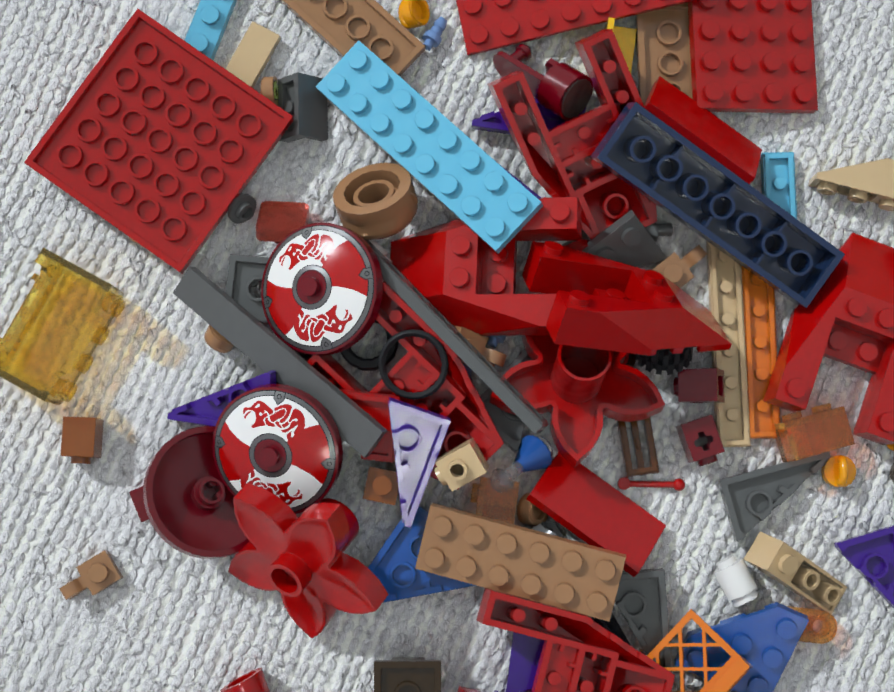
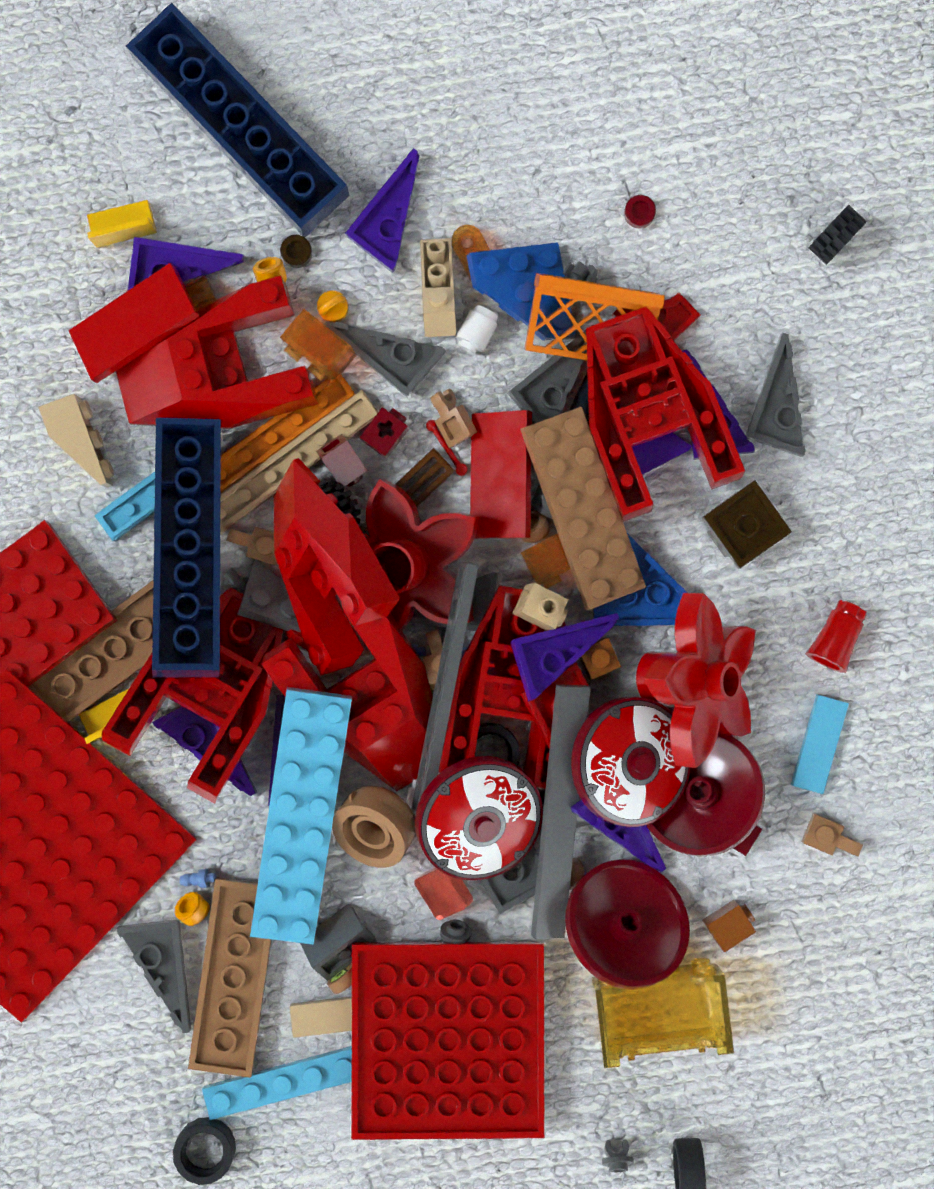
camera: 125 degrees left, 5 degrees up
(145, 352) = (627, 924): none -> dark red dish
(176, 624) = (819, 744): none -> medium azure tile
(417, 333) = (518, 701): black tyre -> none
(532, 455) = (493, 557): piece -> none
(560, 90) = (178, 740): dark red piece -> none
(669, 505) = (454, 421): none -> medium nougat plate
(704, 129) = (131, 600): red tile -> none

